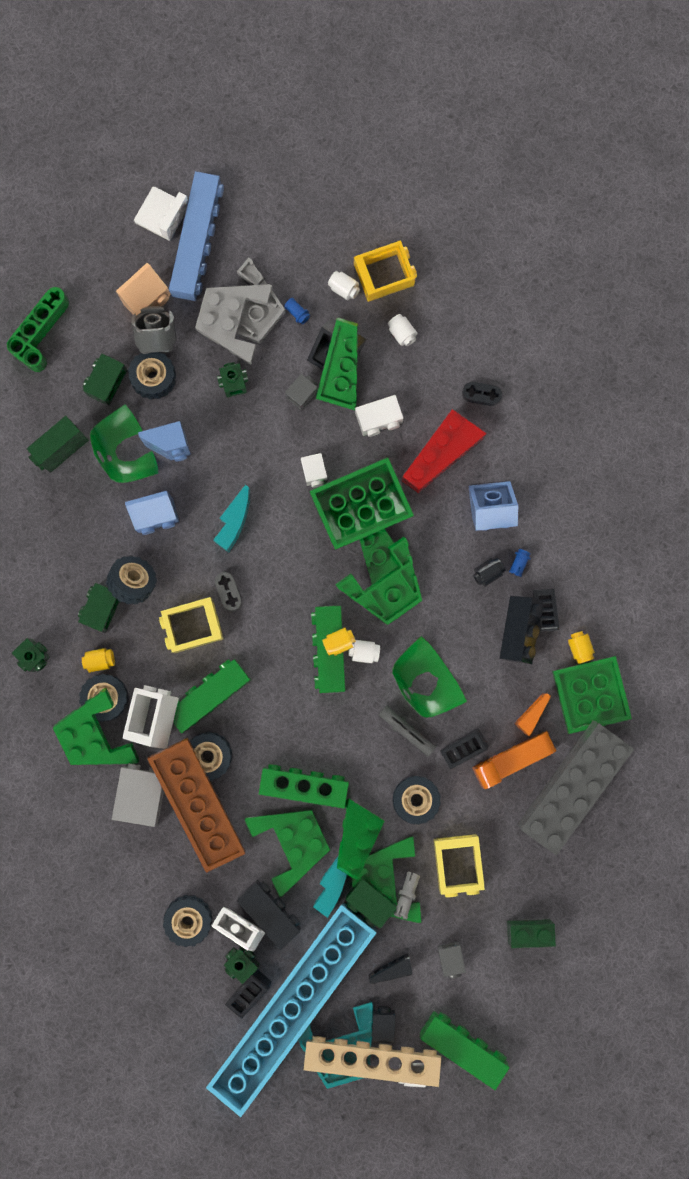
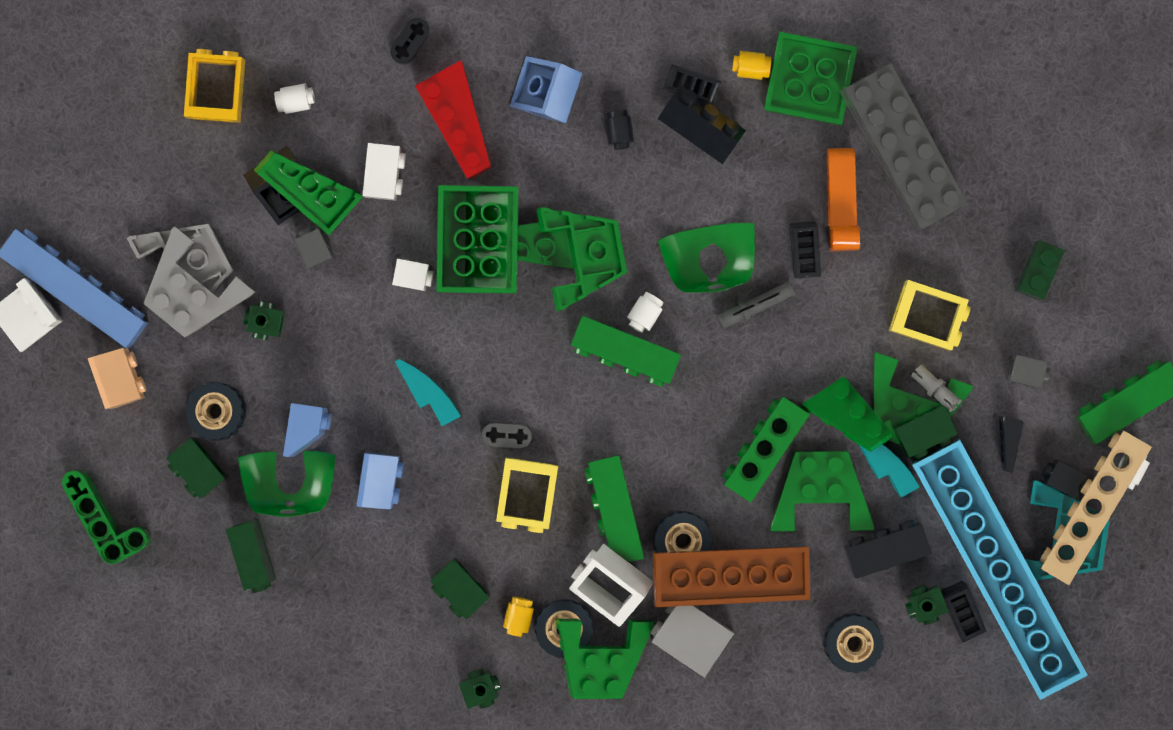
camera: 65 degrees left, 5 degrees up
(131, 580) = (443, 525): black wheel -> none
(154, 330) = (166, 385): dark grey brick -> none
(238, 929) = (887, 590): white brick -> none
(297, 311) = (215, 210): blue pin -> none
(339, 641) = (622, 336): yellow brick -> none
(344, 285) = (210, 142): white brick -> none
(402, 800) = (841, 313): black wheel -> none
(520, 562) = (624, 89): blue pin -> none
(531, 716) = (803, 158): orange slope -> none

